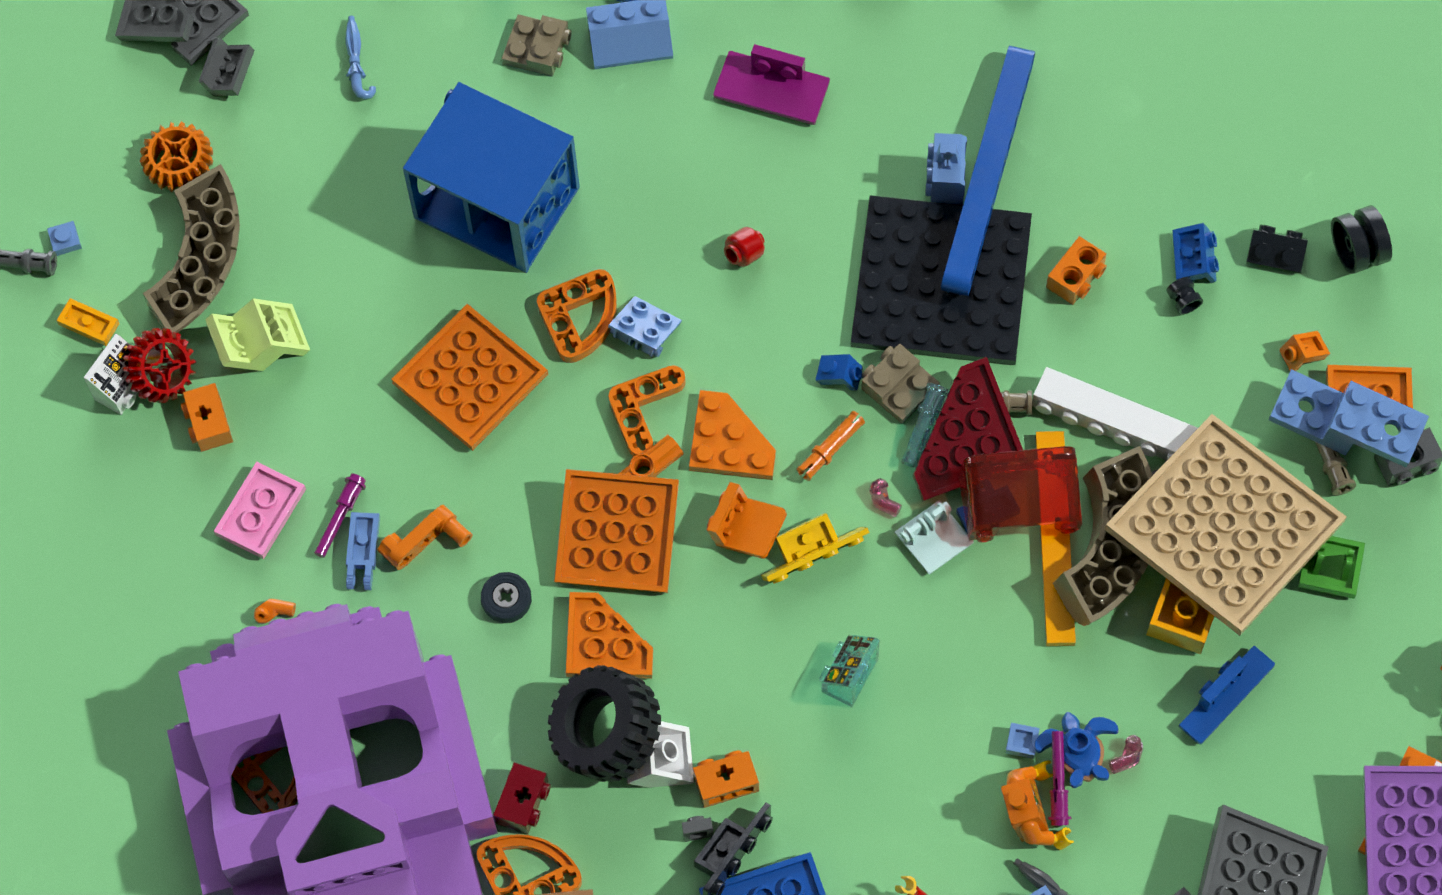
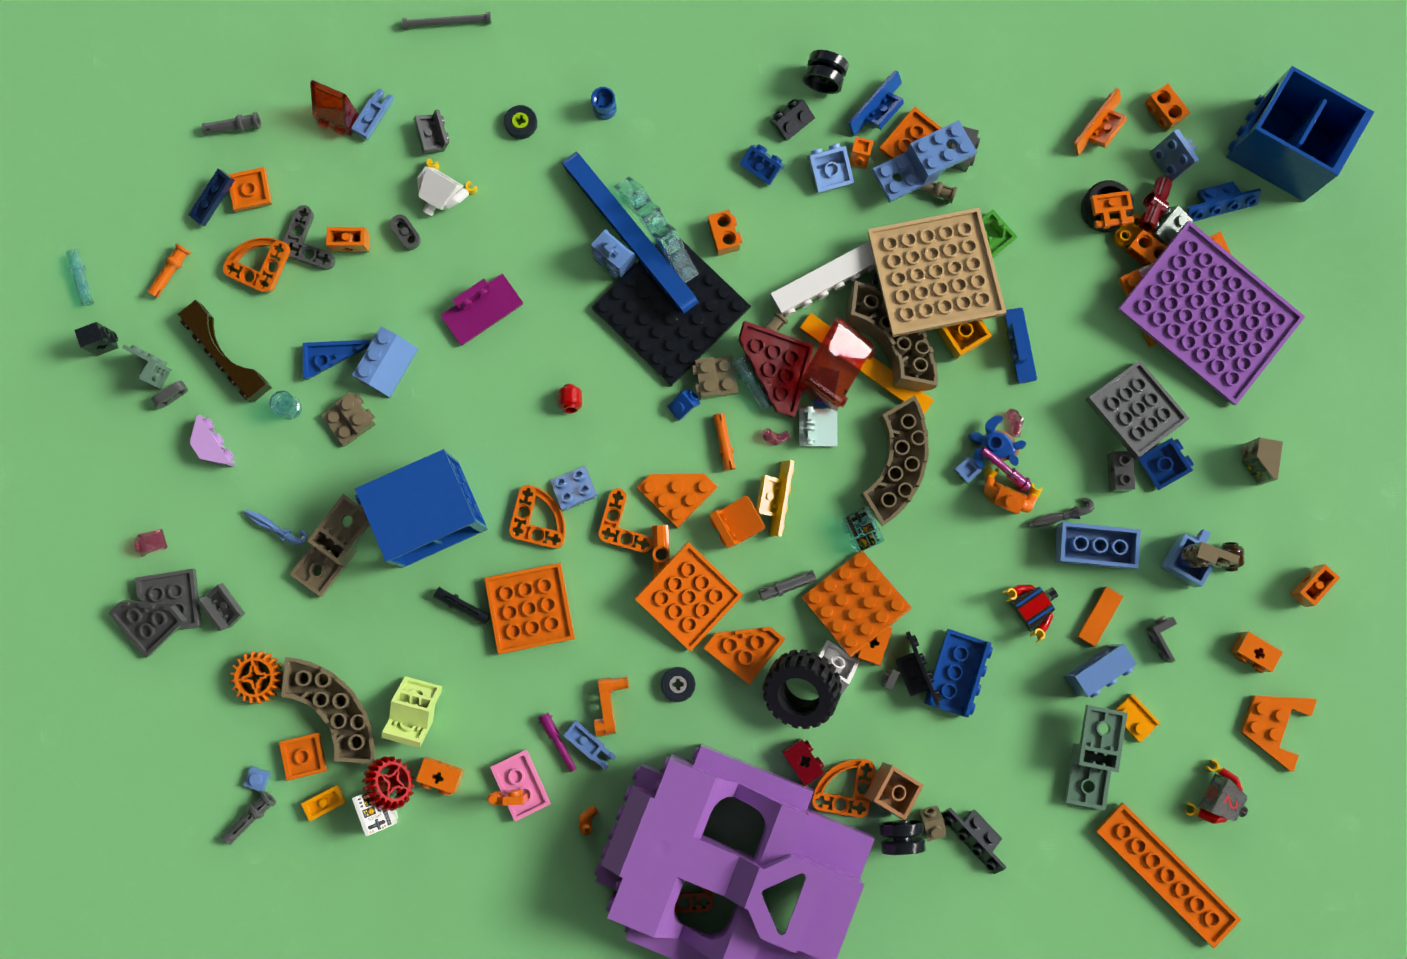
camera: 55 degrees left, 15 degrees up
(124, 264) = (303, 756): none -> orange plate
(238, 497) = (514, 797): none -> orange plate
(376, 125) = (331, 546): none -> dark tan bracket
(414, 276) = (441, 595): none -> black pin
(709, 629) = (779, 588): none -> dark grey pin
(756, 722) = (856, 603): none -> orange plate
(967, 656) = (904, 462): none -> dark tan brick
(1013, 194) = (652, 218): none -> clear light blue arch
(1115, 39) = (603, 103): none -> blue wheel
(1185, 296) = (782, 188): black wheel -> none
(1254, 329) = (830, 168): none -> light blue plate
(1377, 329) = (879, 107): none -> blue bracket

